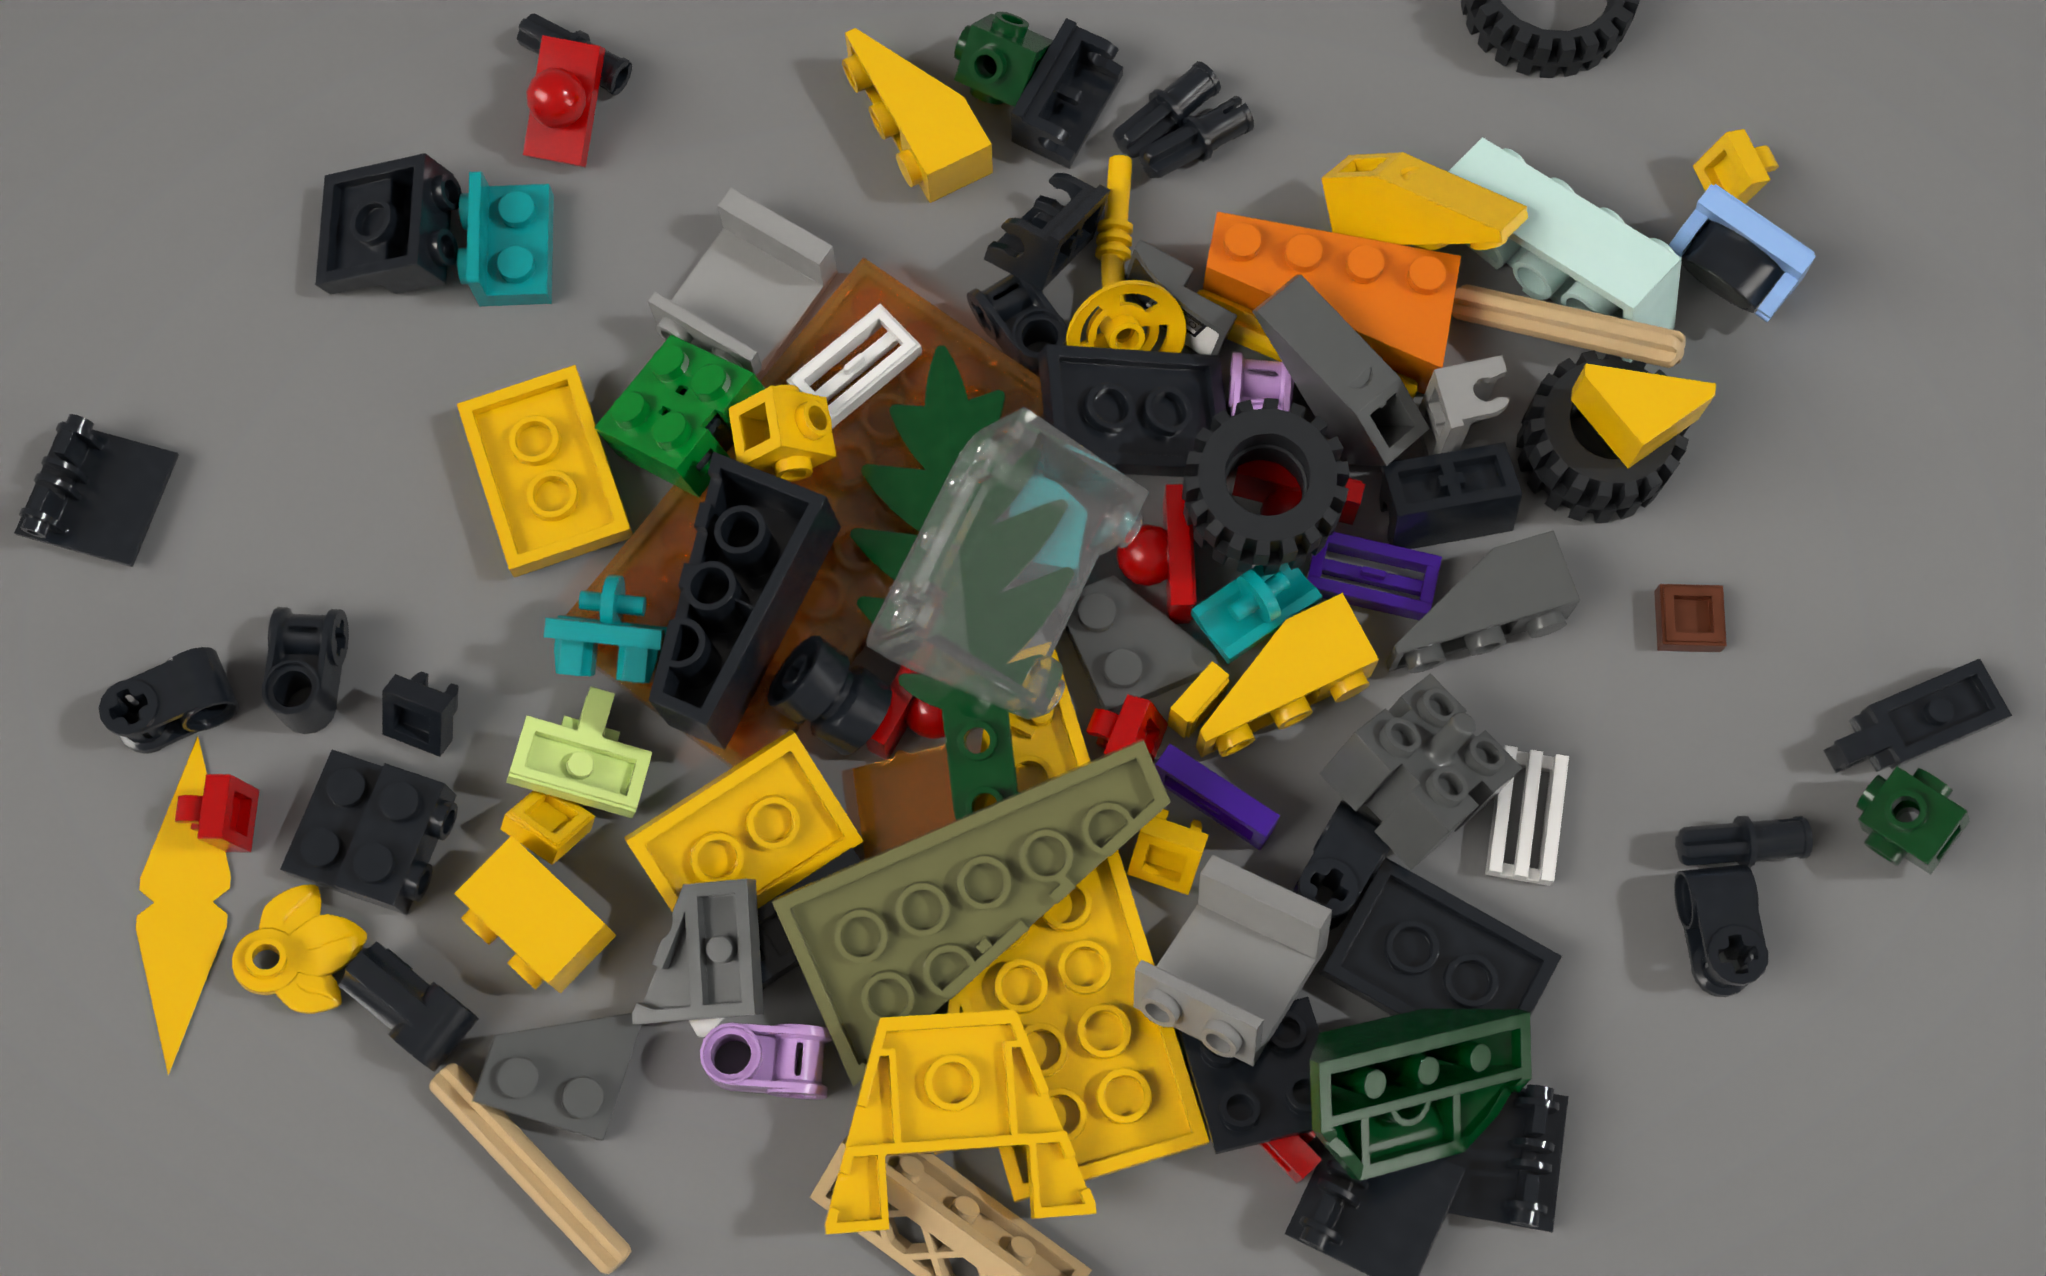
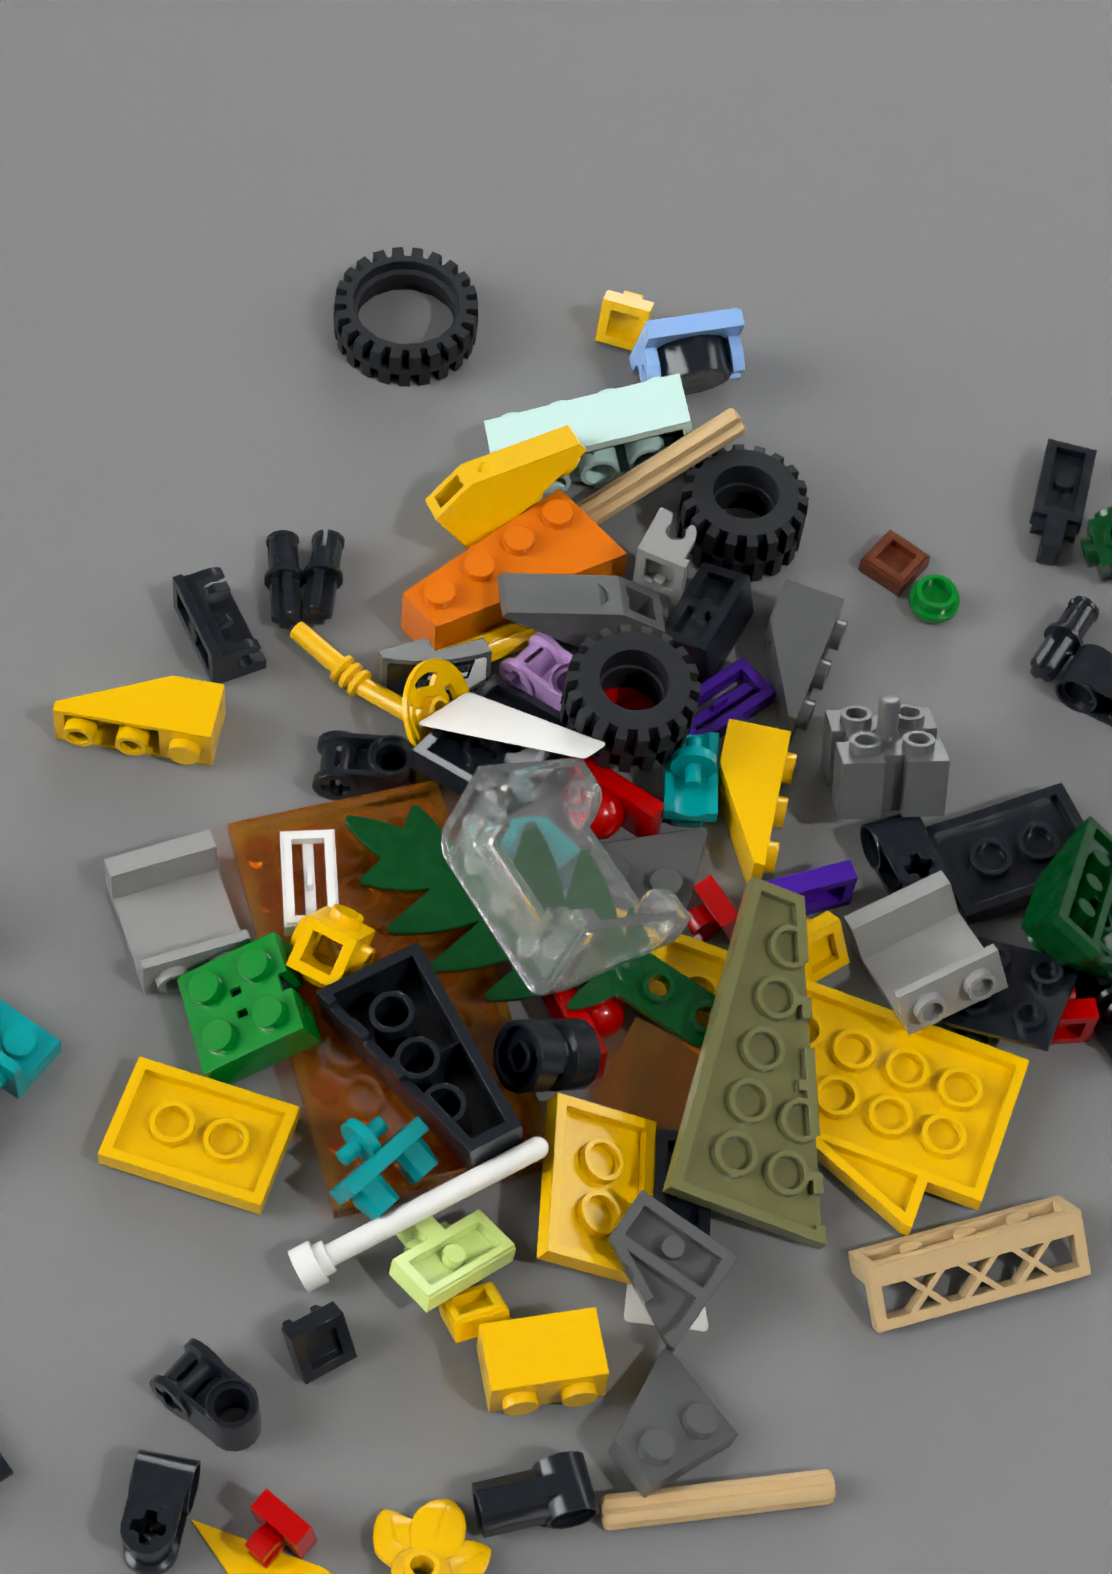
camera: 60 degrees left, 15 degrees down
(371, 832) = (378, 1438): black plate -> none
(494, 655) = (318, 1261): none -> white piece
(772, 1059) = (770, 1283): lavender piece -> none
(953, 1088) = (883, 1174): yellow wing -> none
(999, 57) = (160, 638): dark green brick -> none
(1049, 233) = (323, 702): black hinge -> none
(1144, 400) = (497, 722): none -> white sticker
(1198, 700) = (725, 856): yellow tile -> none
(1534, 762) = (965, 738): white tile -> none
(1638, 409) = (756, 469): yellow slope -> none
(1678, 686) = (934, 599): none -> green plate

